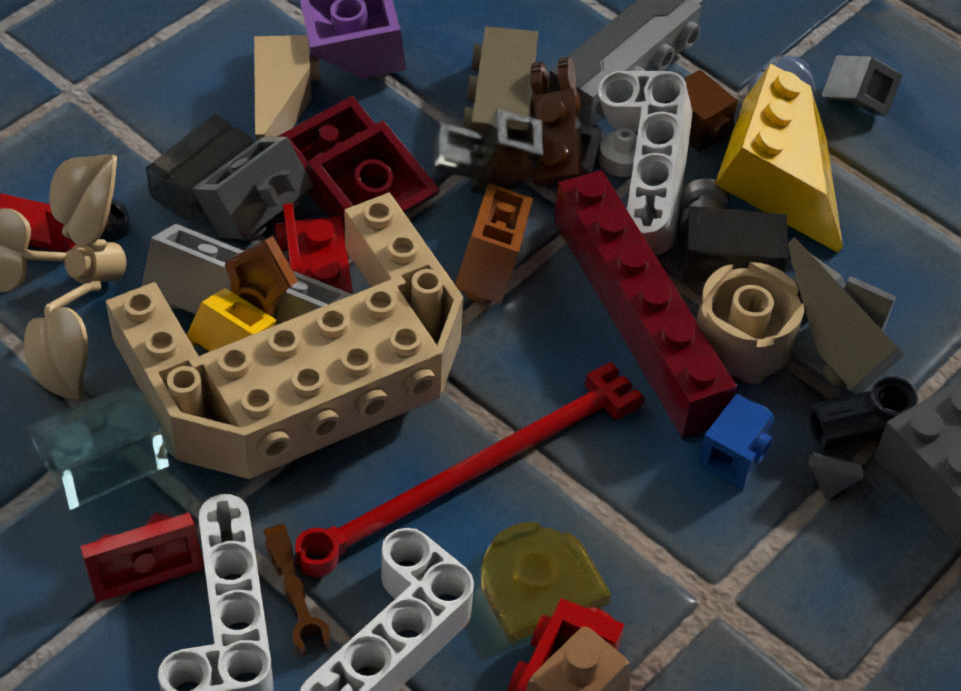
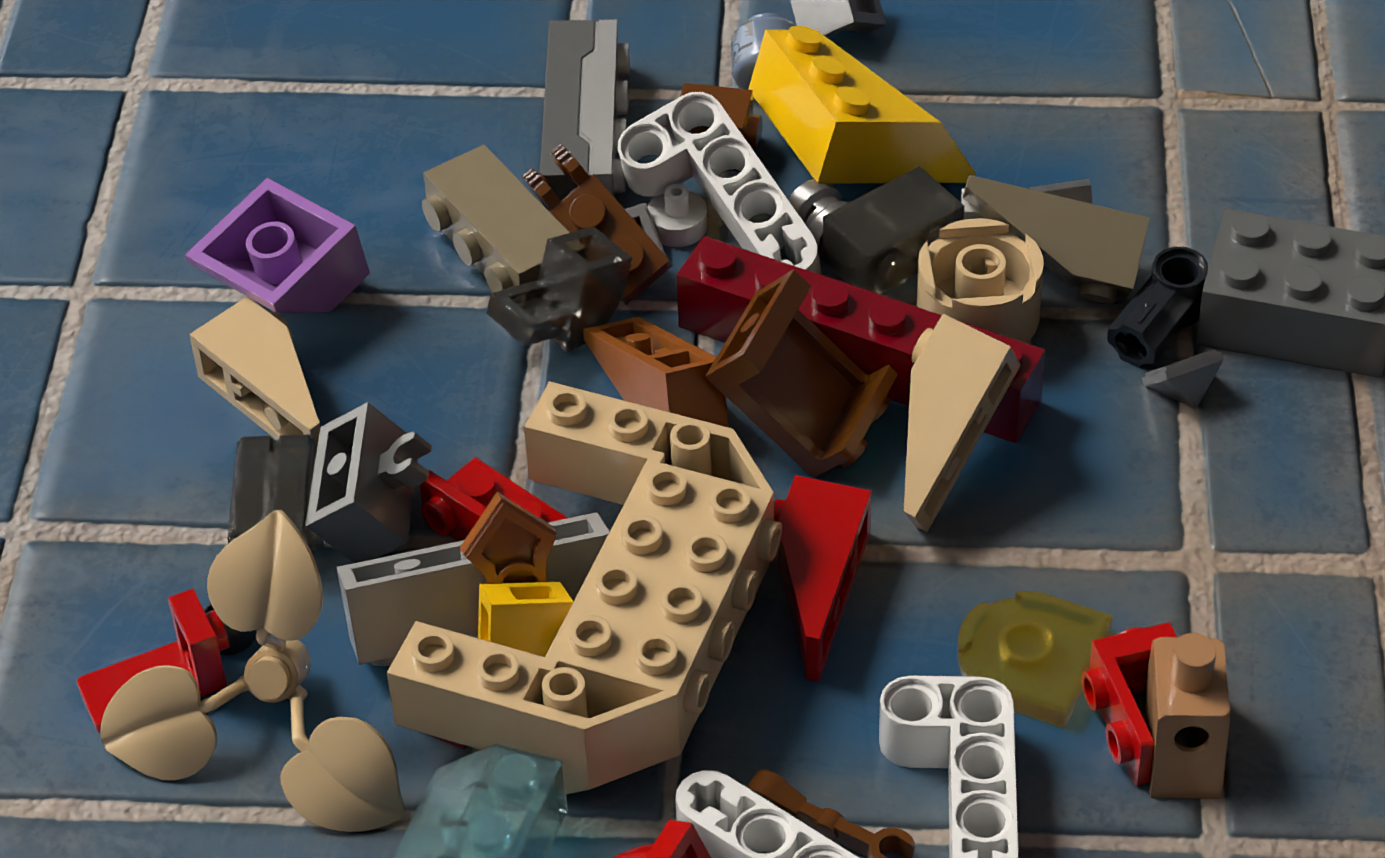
camera: 35 degrees left, 5 degrees down
(357, 161) = (449, 392): dark red slope -> none
(467, 416) = (818, 560): none -> red slope
(564, 299) = (799, 381): none -> reddish brown panel
(604, 392) = (818, 757): red hinge -> none
(626, 381) = (952, 397): none -> tan slope
(737, 441) = (1080, 406): blue brick -> none

